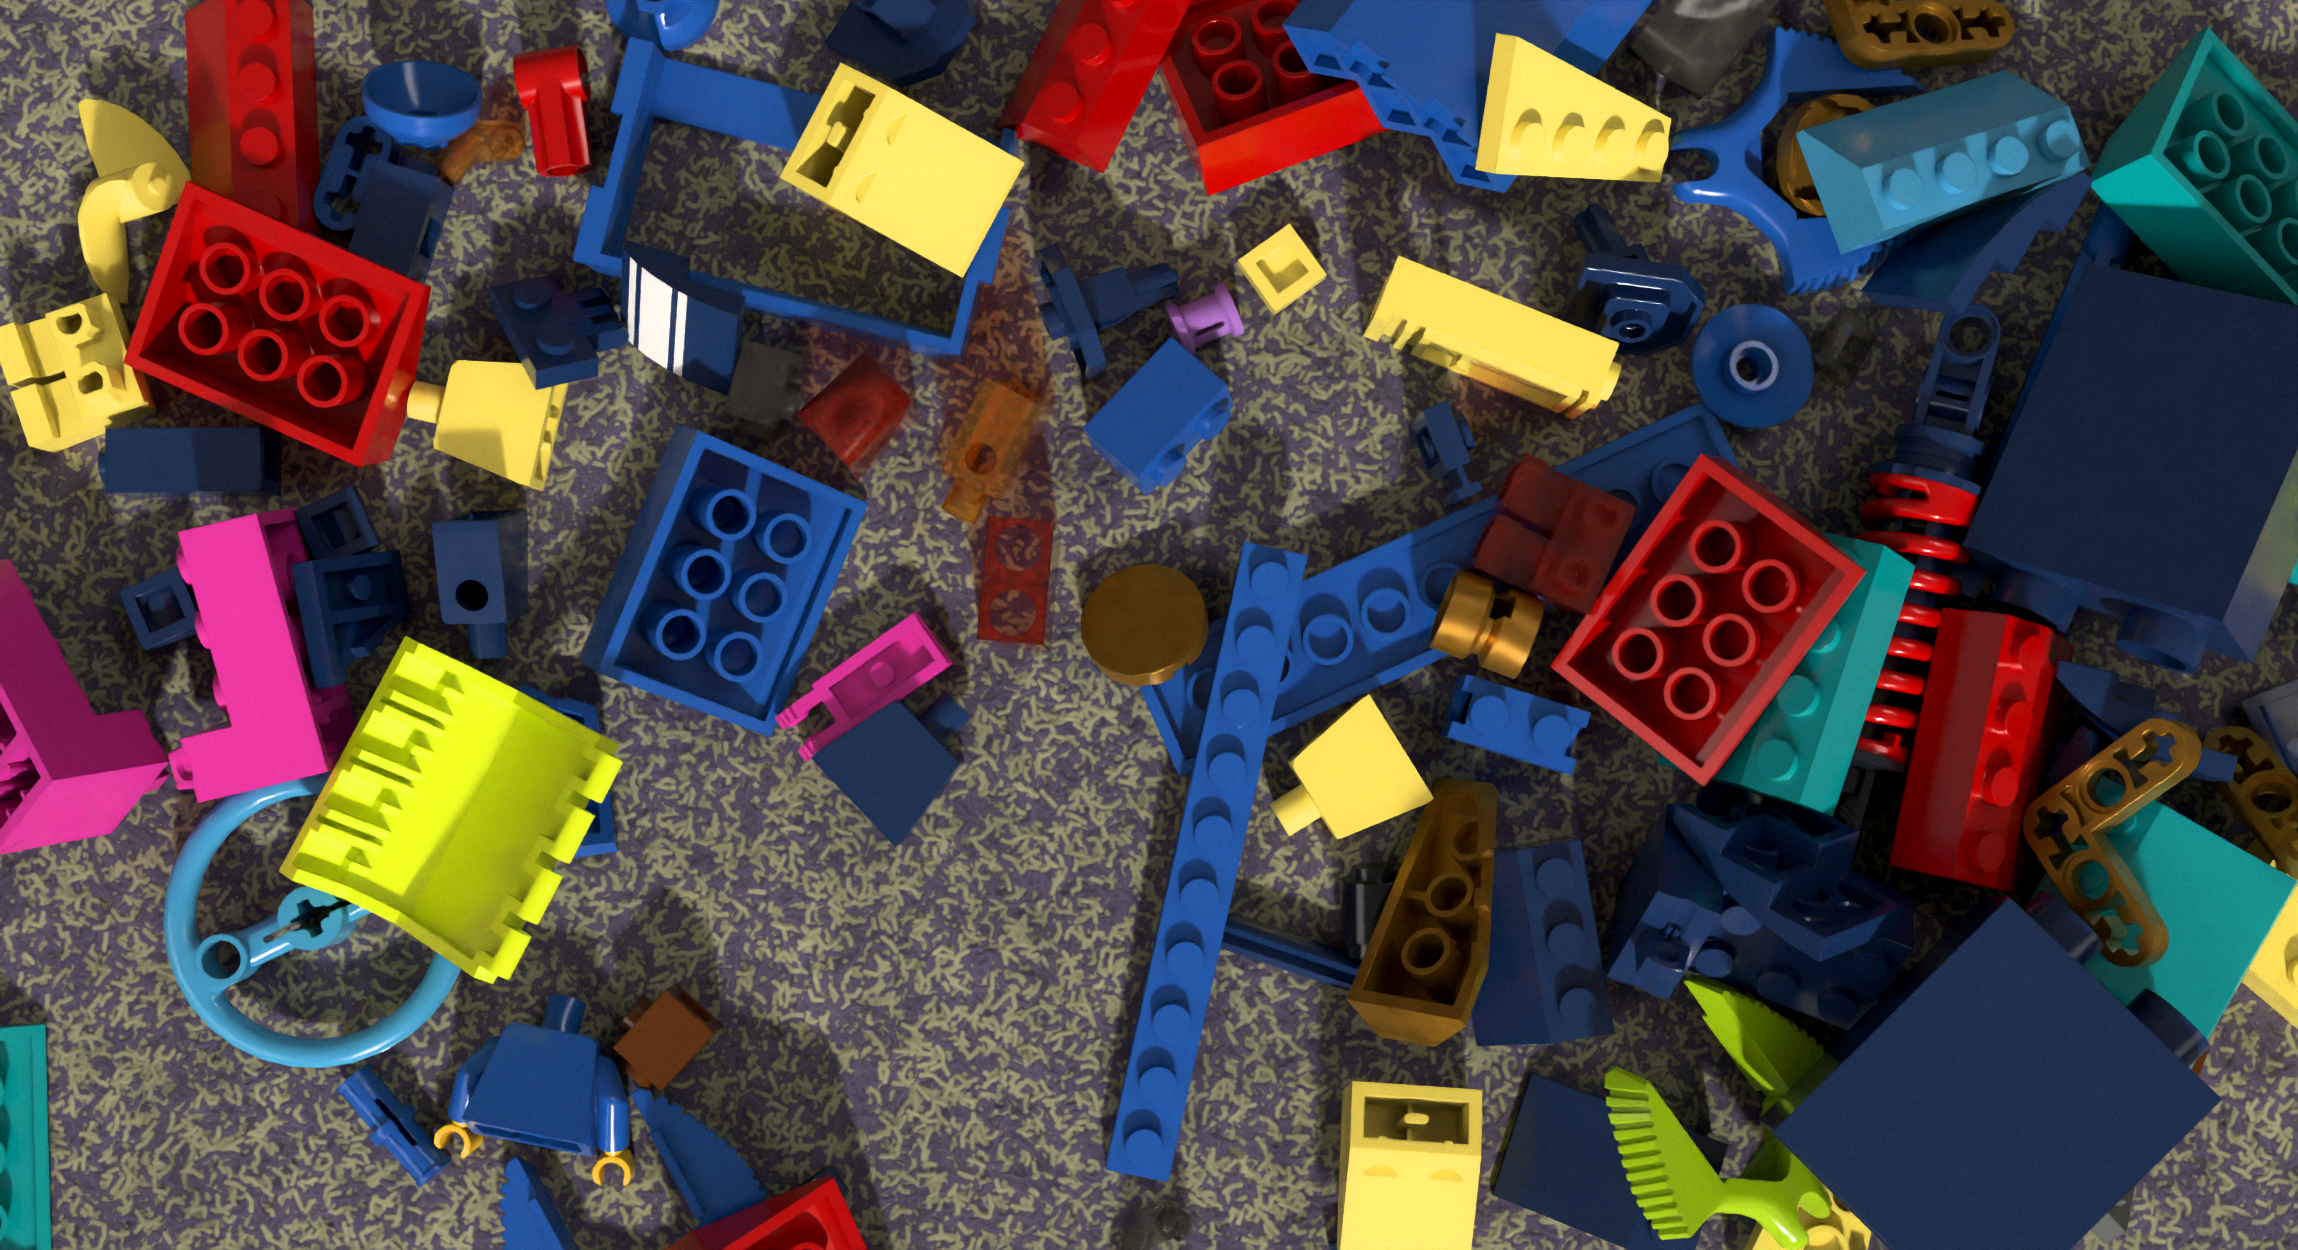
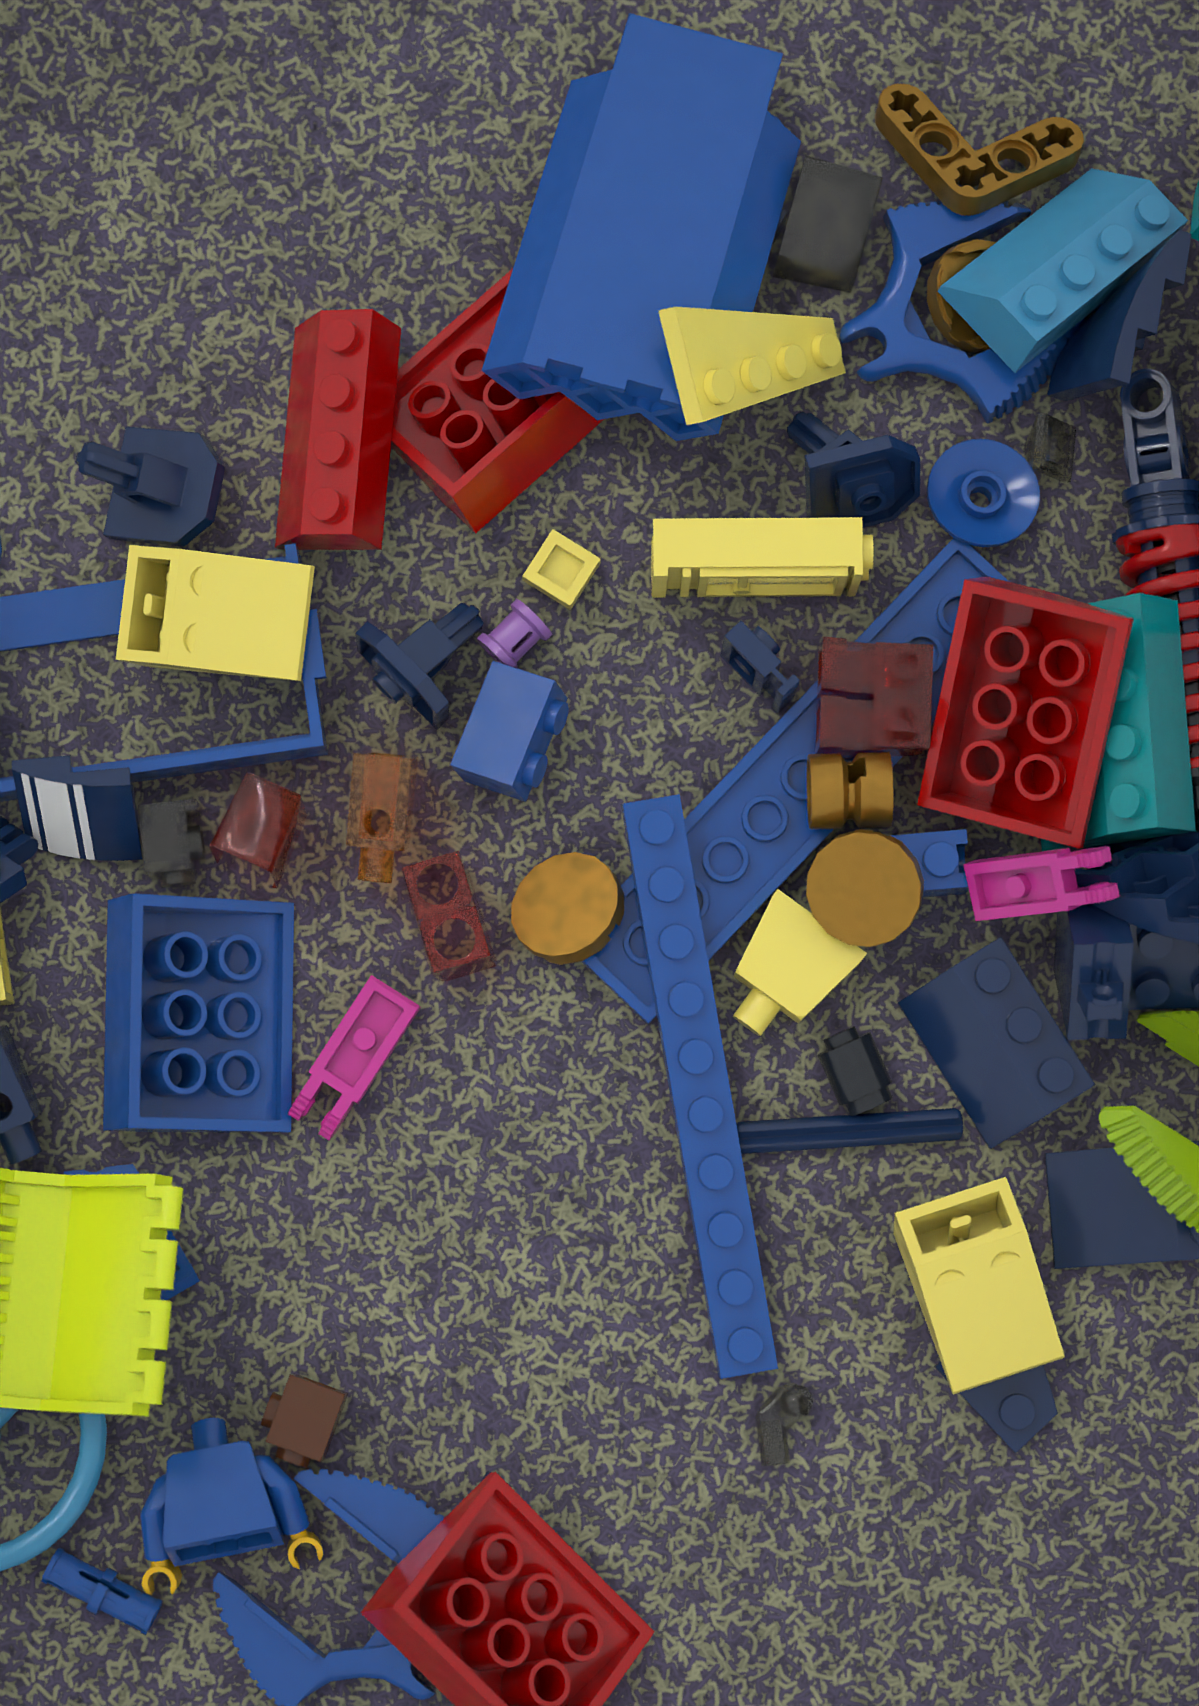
camera: 20 degrees left, 5 degrees down
(896, 763) = (407, 1107): dark blue torso -> none
(1436, 922) = (908, 1057): pearl gold wedge -> none
(1460, 733) = (865, 888): none -> pearl gold tile
(1643, 804) = (1035, 883): none -> dark pink hinge

